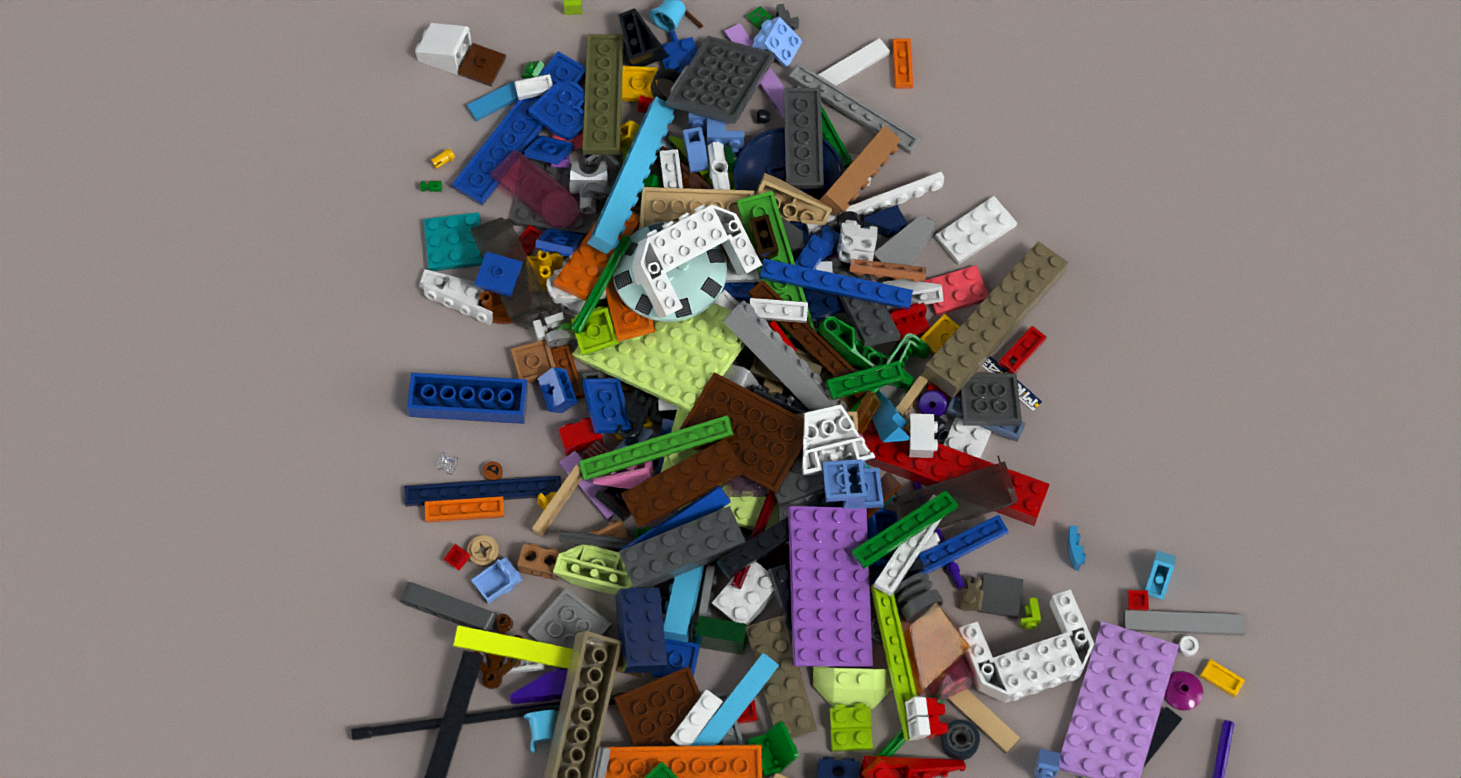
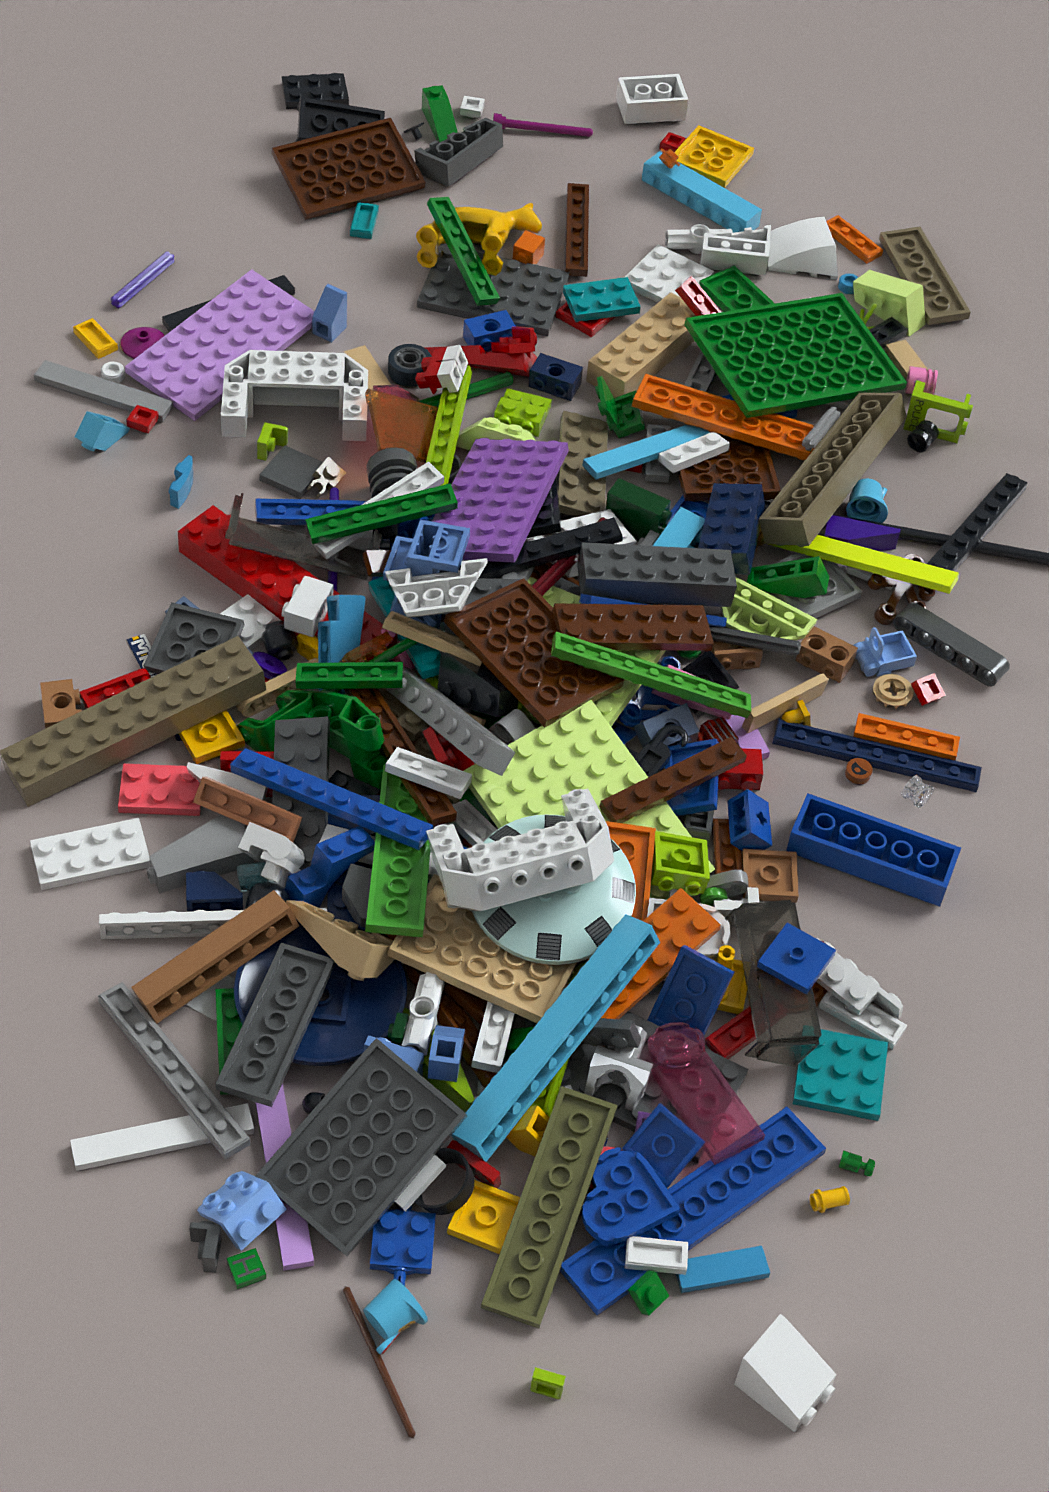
camera: 165 degrees left, 15 degrees down
(482, 64) = (724, 1338): reddish brown plate -> none
(583, 610) = (792, 578): none -> green slope
(601, 284) = (658, 891): green axle -> none
(615, 380) = (673, 781): none -> reddish brown plate
(640, 41) = (457, 1274): black wedge -> none
(763, 237) = (409, 856): dark brown brick -> none
(902, 63) = (59, 1121): orange tile -> none
(1051, 311) = (59, 701): none -> medium nougat brick

